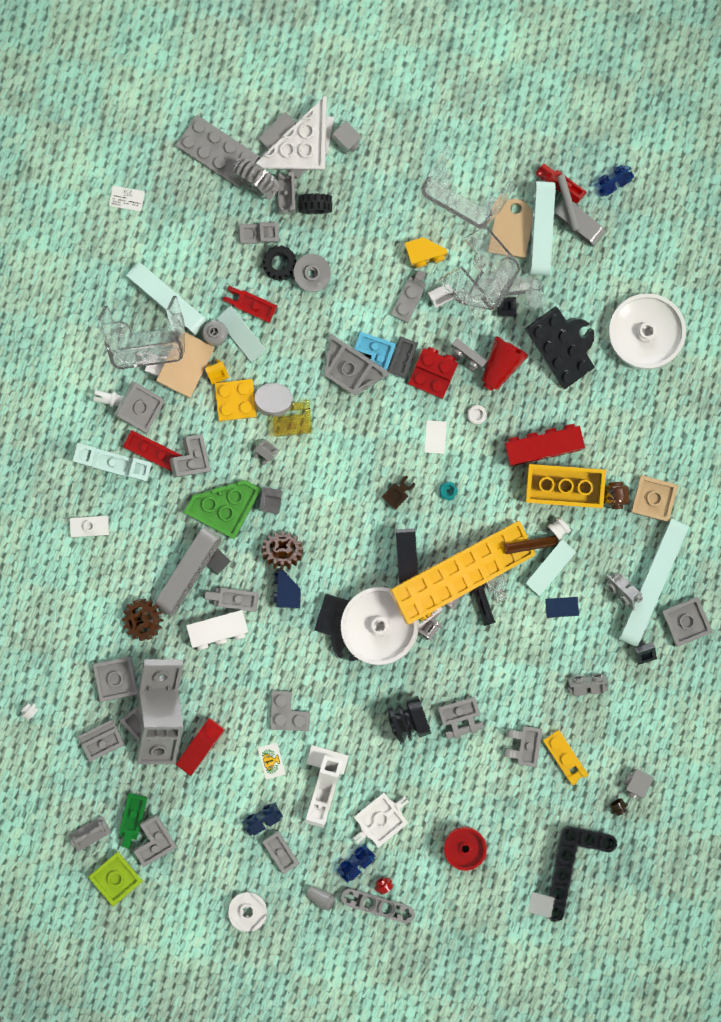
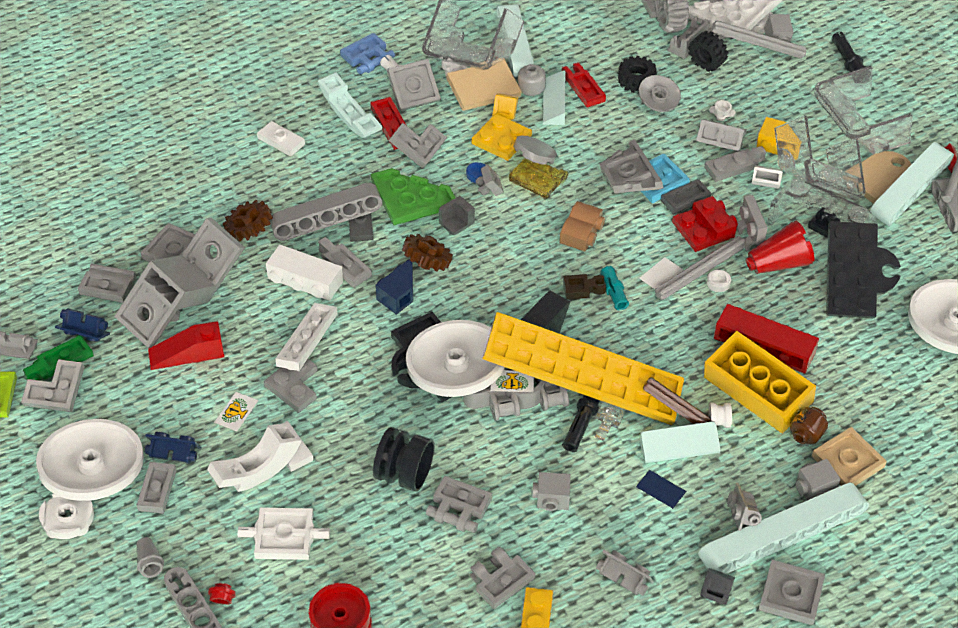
camera: 35 degrees right, 35 degrees down
(28, 711) = (75, 220): white plate -> none
(68, 397) = (362, 50): none -> medium blue plate
(123, 786) = (73, 324): none -> dark blue hinge
(228, 871) = (90, 459): none -> white dish
(247, 447) = (473, 171): none -> blue tile
(258, 233) = (633, 47): light grey slope -> none
(269, 679) = (306, 337): none -> white plate
(343, 165) = (758, 39): none -> light grey axle
(349, 868) = (206, 552): clear blue hinge -> none
(358, 442) = (581, 226): none -> medium nougat brick
(364, 246) = (722, 110): none -> white plate
(383, 279) = (721, 134): none -> light grey hinge
(418, 125) = (852, 60): none -> black pin
(418, 477) = (614, 288): none -> teal pin
(453, 491) = (633, 311): teal plate -> none
(458, 413) = (700, 268): none -> light grey axle
(507, 666) = (552, 491): none -> light grey brick
(647, 532) = (816, 479): none -> light grey brick

